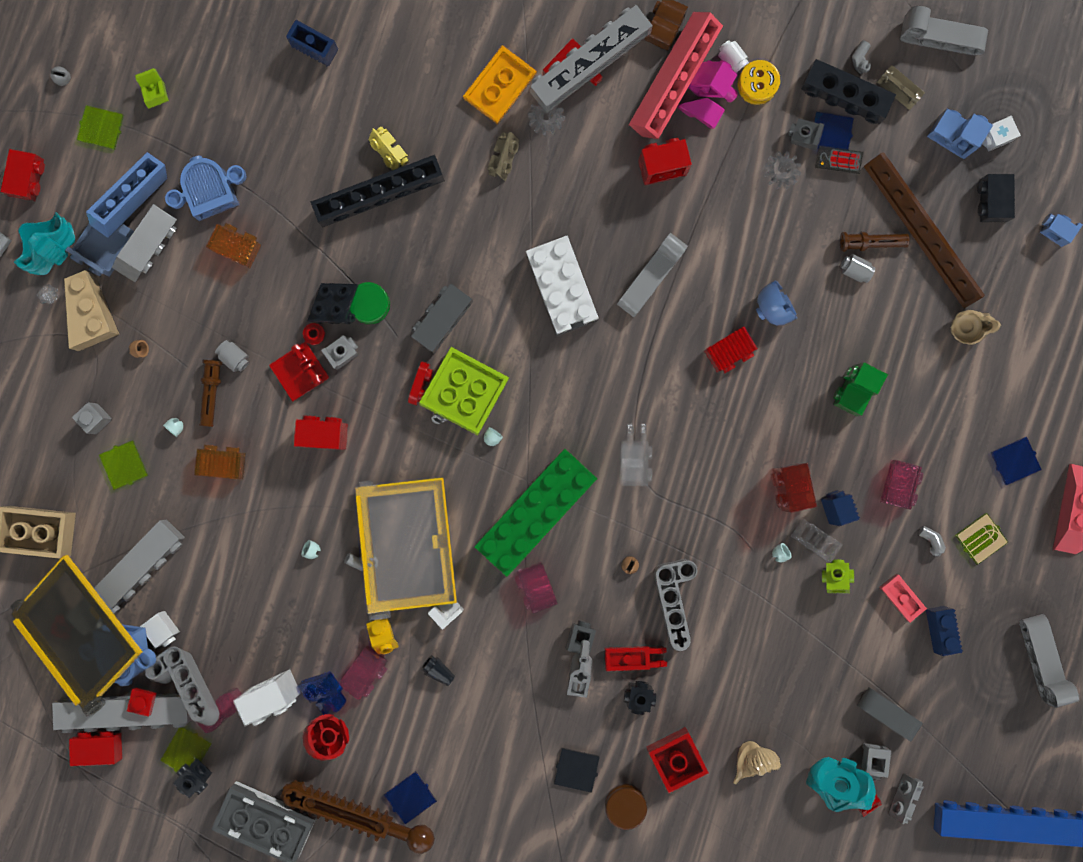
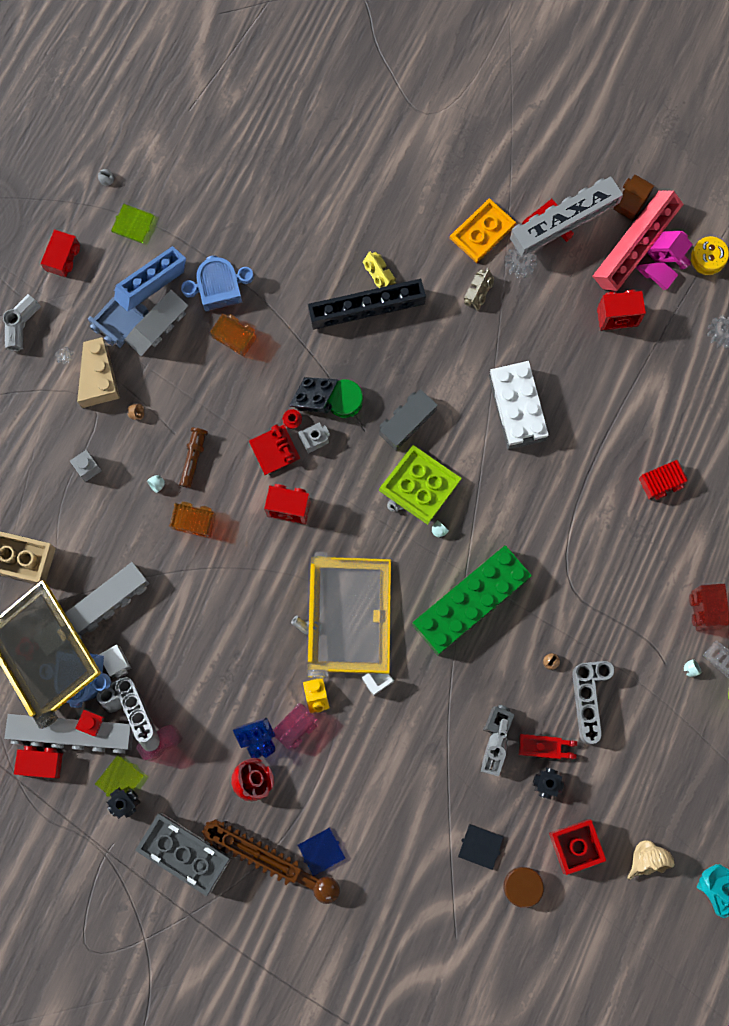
camera: 10 degrees right, 10 degrees down
(44, 244) = (69, 312): teal piece -> none
(123, 465) = (105, 511): clear neon green piece -> none
(152, 88) = (183, 195): lime bracket -> none
(232, 356) = (217, 428): light grey brick -> none
(266, 698) = (206, 732): white brick -> none
(309, 550) = (261, 608): light aqua hinge -> none
(312, 43) = (326, 175): dark blue brick -> none
(423, 374) = (385, 466): red plate -> none
(437, 670) = (363, 734): black cone -> none
(536, 587) = (463, 668): clear pink brick -> none
(634, 459) = (566, 565): clear hinge -> none
(652, 275) = (600, 405): light grey beam -> none
(734, 55) = (691, 229): white brick -> none
(775, 305) = (707, 445): medium blue cylinder -> none

